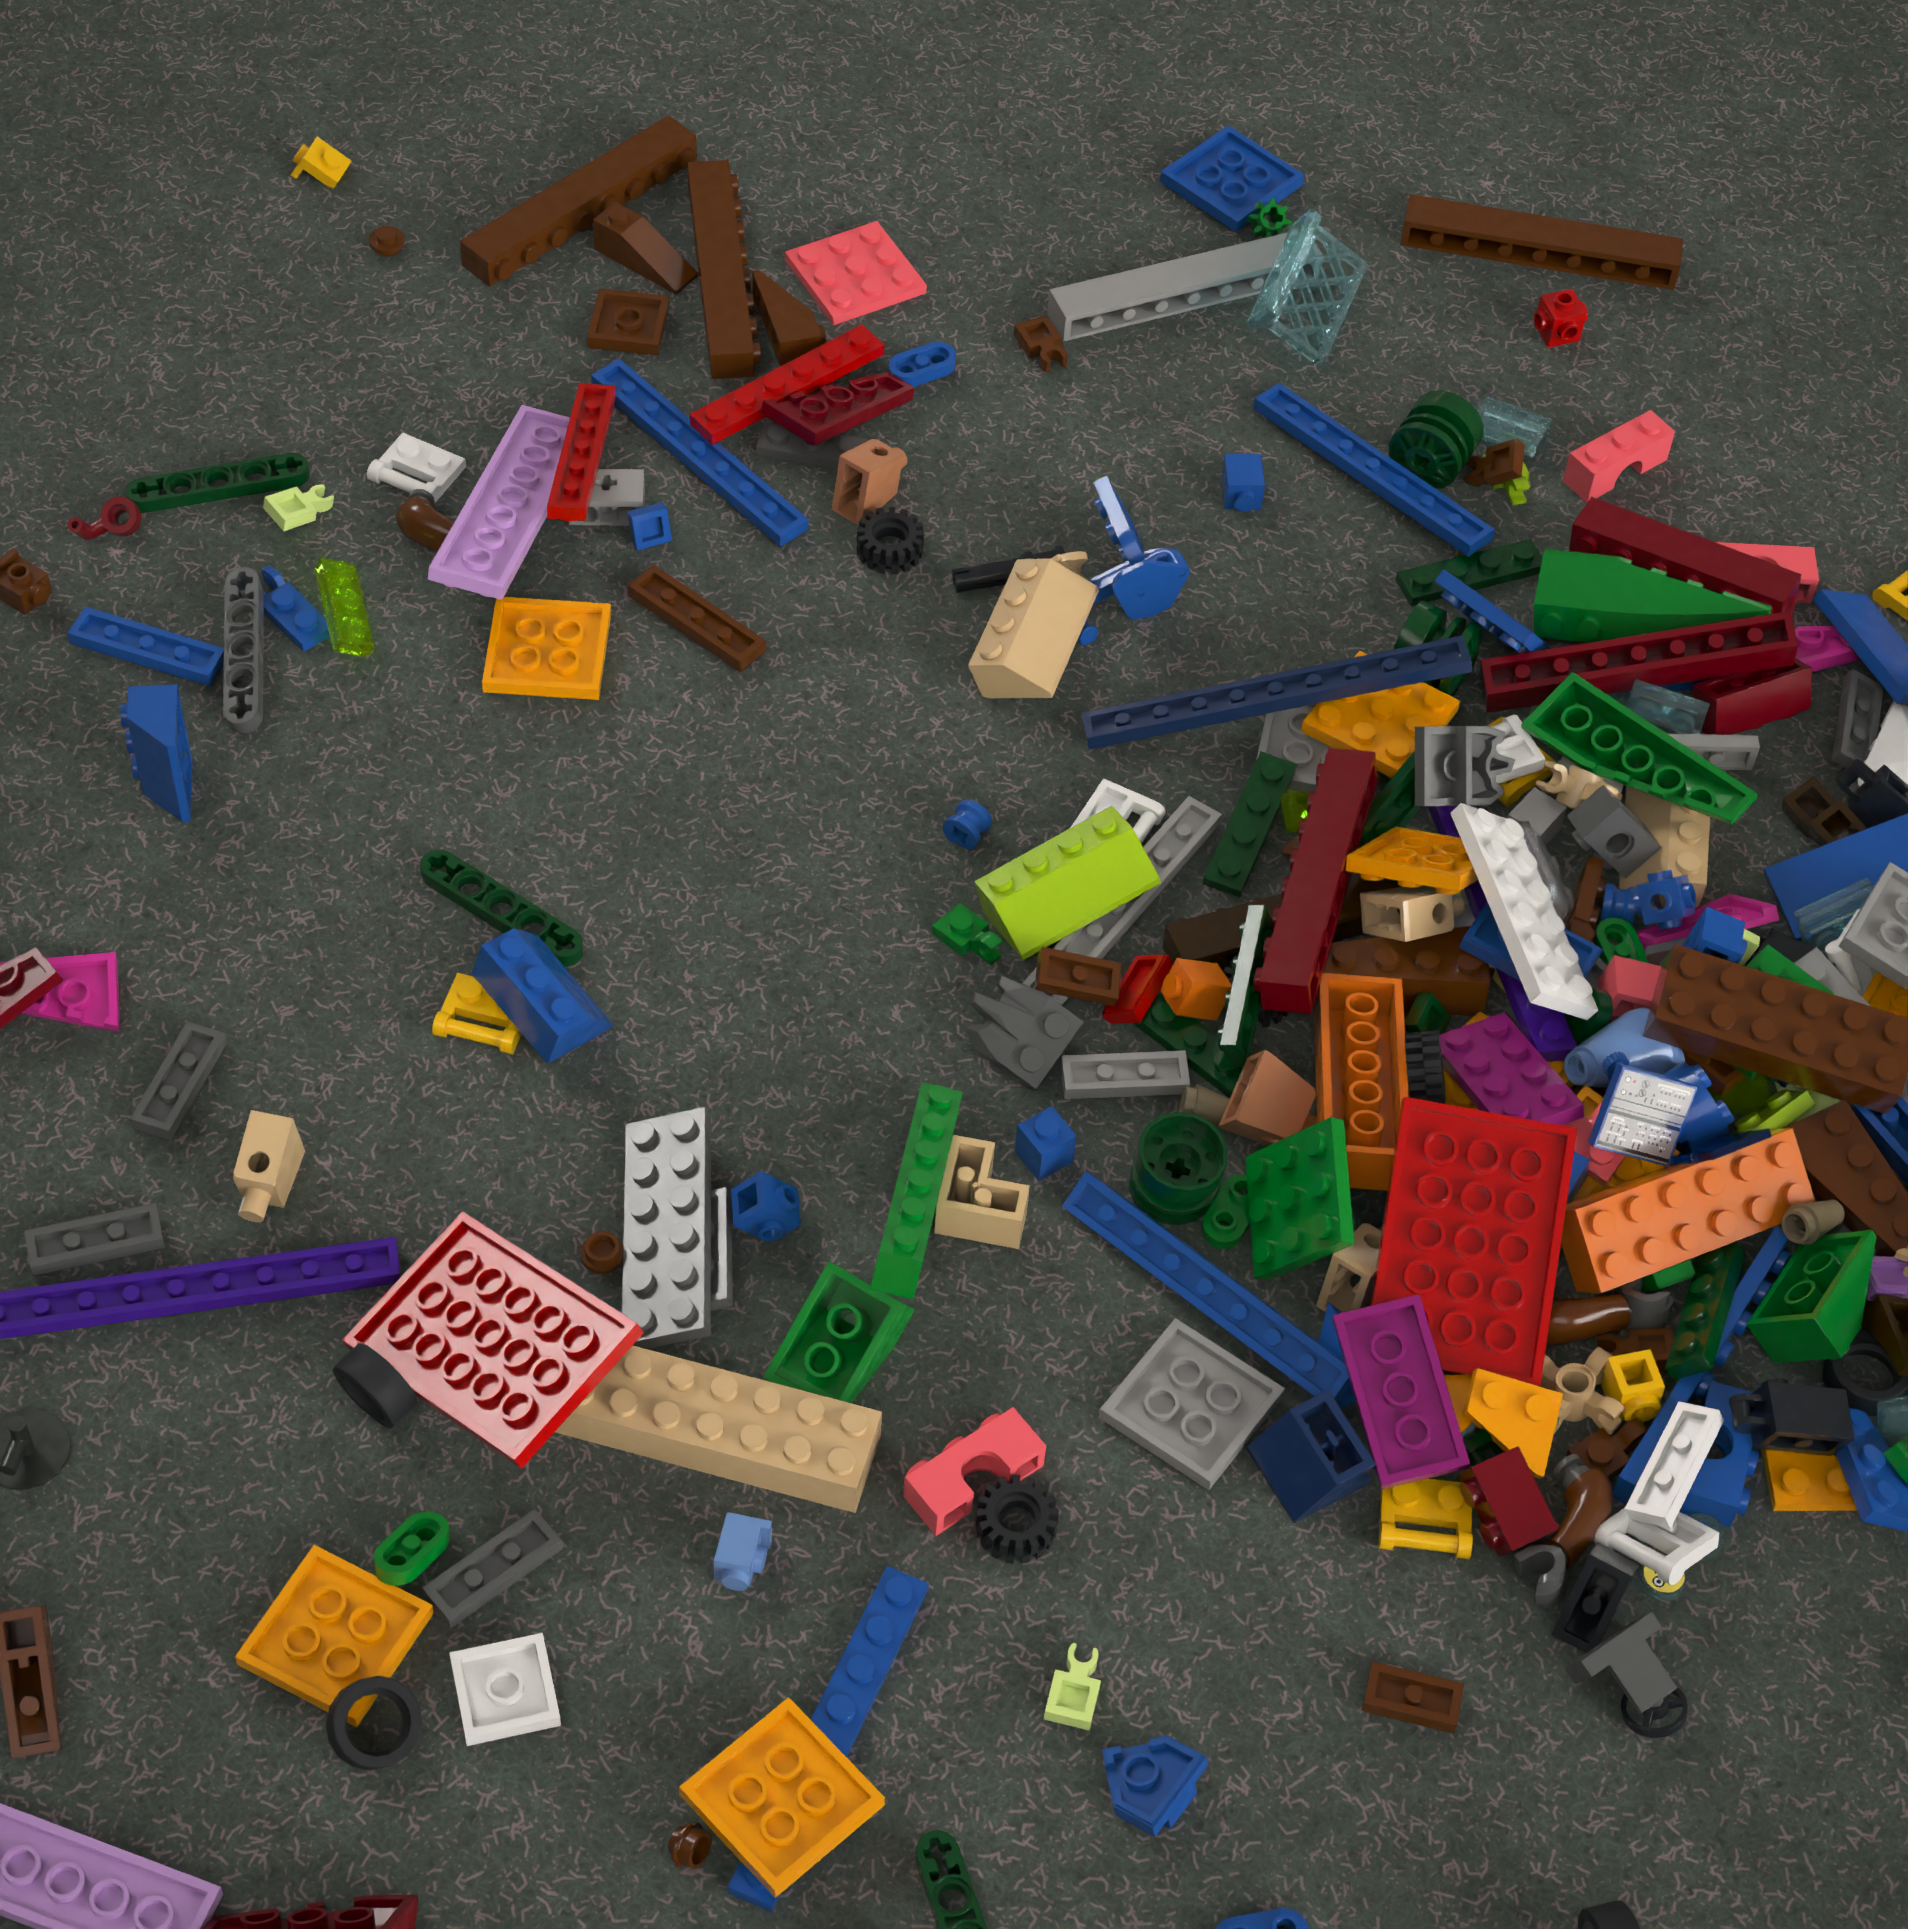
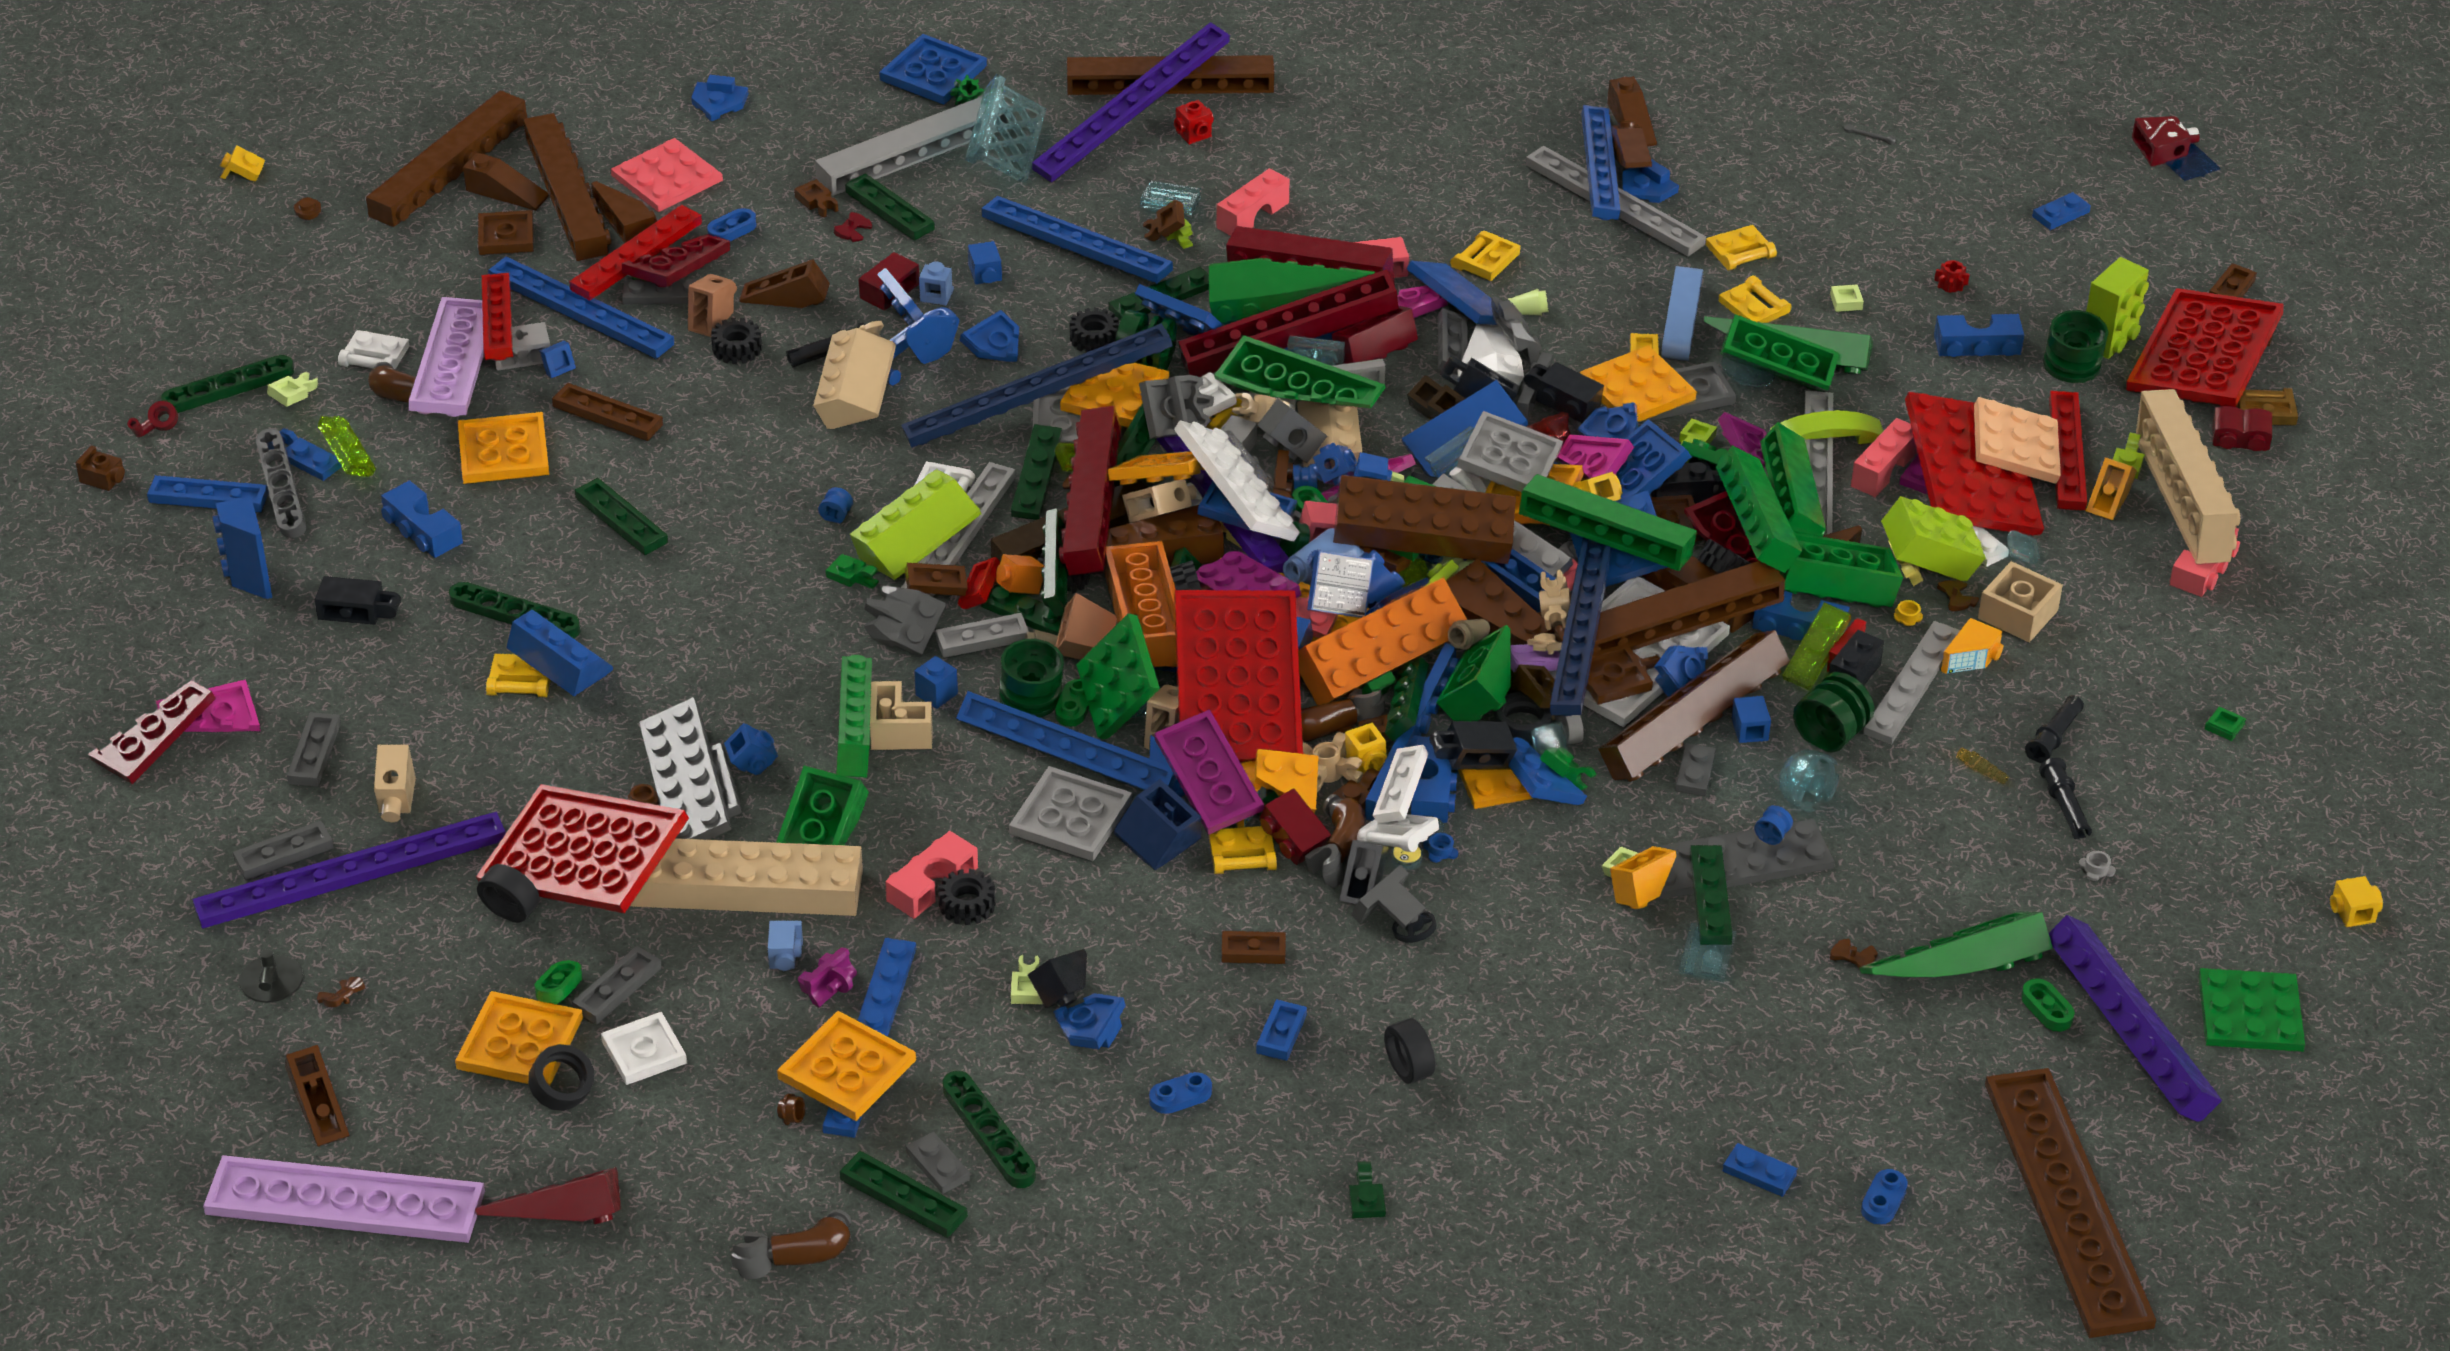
camera: 10 degrees left, 10 degrees down
(97, 1508) = (348, 987): none -> reddish brown piece
(292, 852) = (354, 601): none -> black brick
(421, 764) = (409, 511): none -> blue arch
(677, 785) = (621, 516): none -> dark green plate
(795, 1622) = (831, 975): none -> magenta hips
(947, 170) = (719, 96): none -> blue plate
(980, 472) = (790, 287): none -> reddish brown slope
(1071, 397) = (848, 231): none -> dark red piece
(1123, 1701) = (1060, 978): none -> black slope
(1127, 474) = (902, 269): none -> dark red brick
(1134, 373) = (889, 206): none -> dark green plate
(1175, 495) = (935, 278): none -> medium blue brick
(1232, 600) = (993, 338): none -> blue plate
(1374, 598) = (1093, 320): none -> black tyre
(1428, 1858) = (1281, 1030): none -> blue plate
(1437, 437) = (1119, 209): dark green wheel -> none
(1481, 276) = (1130, 102): none -> dark purple plate
(1721, 1565) = (1440, 847): none -> blue plate

